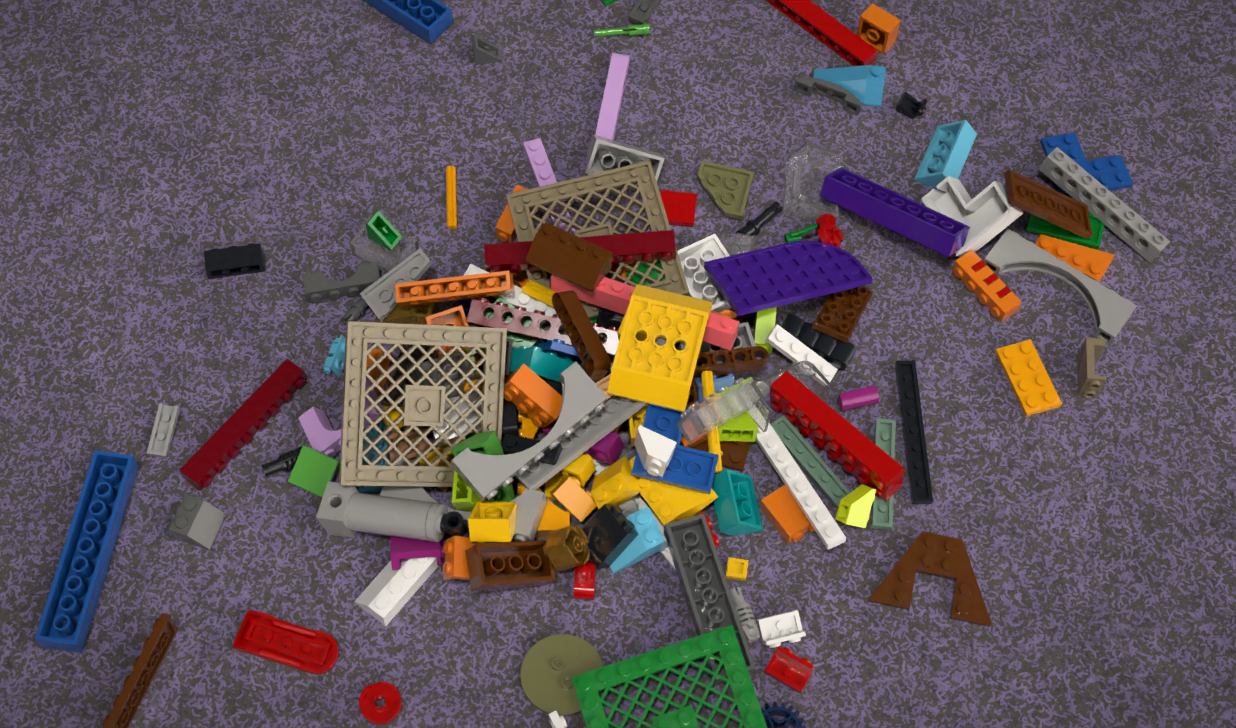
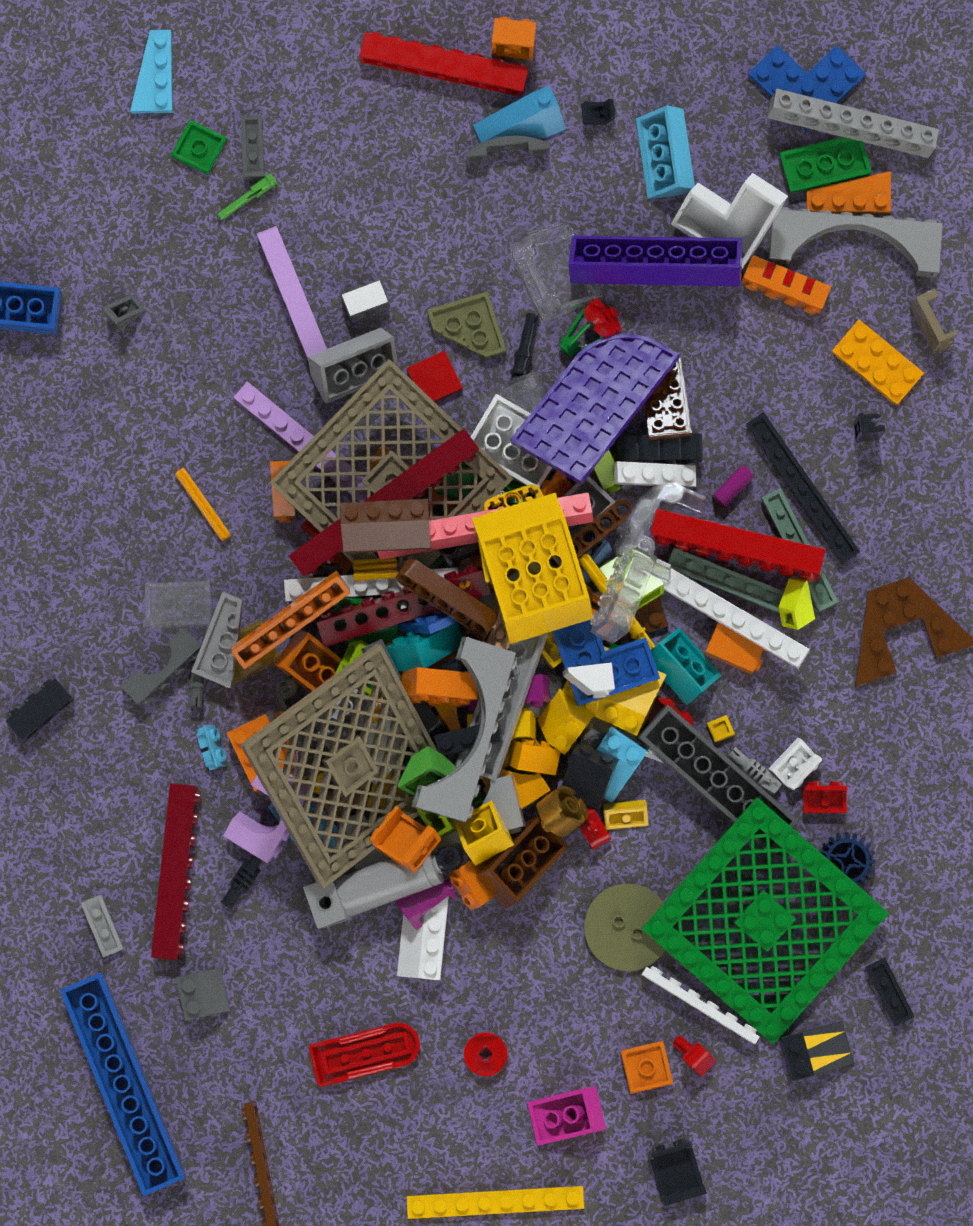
camera: 30 degrees left, 20 degrees up
(313, 470) = (275, 878): bright green tile -> none
(382, 231) = (174, 596): green slope -> none
(428, 487) = (404, 839): none -> orange panel
(617, 588) = (625, 814): none -> yellow slope
(660, 132) = (365, 301): none -> white brick
(992, 416) = (866, 430): none -> black hinge
(1047, 204) = (804, 168): reddish brown plate -> none

